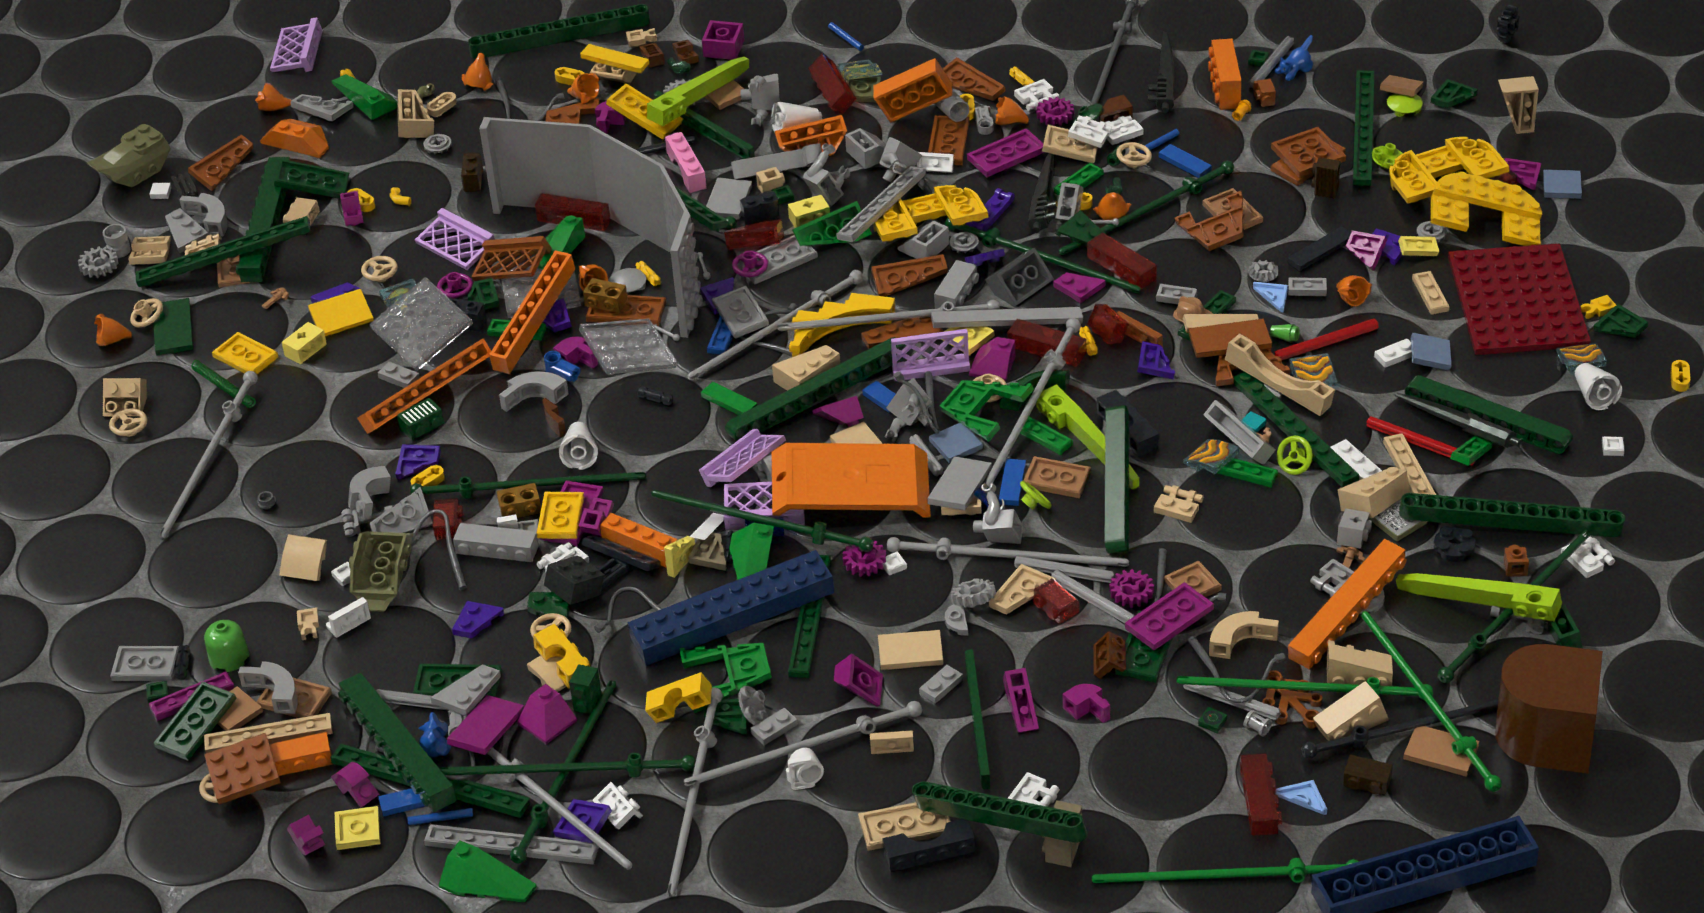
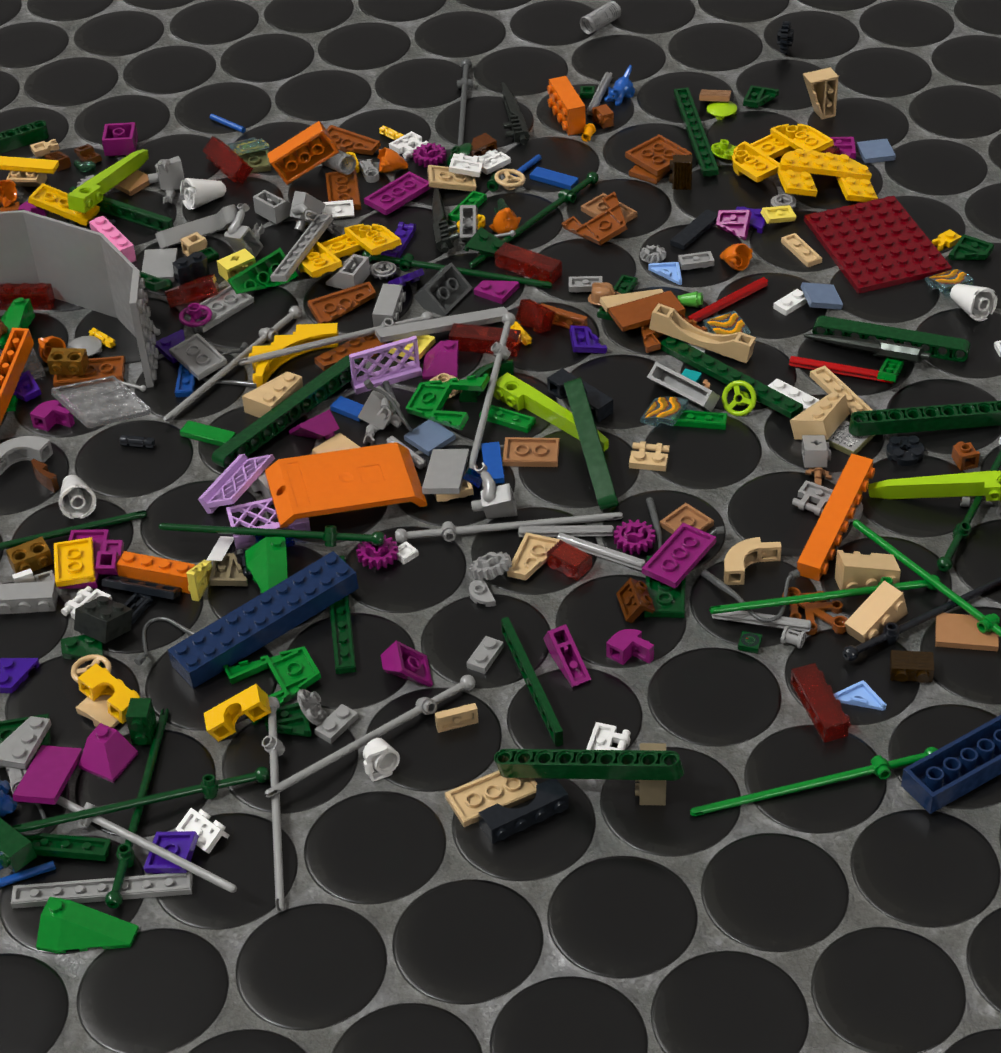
camera: 15 degrees left, 0 degrees up
(561, 367) = (35, 428): blue piece -> none
(822, 131) = (214, 202): orange wedge -> none
(910, 649) = (446, 628): tan tile -> none
(1033, 496) = (517, 471): lime piece -> none

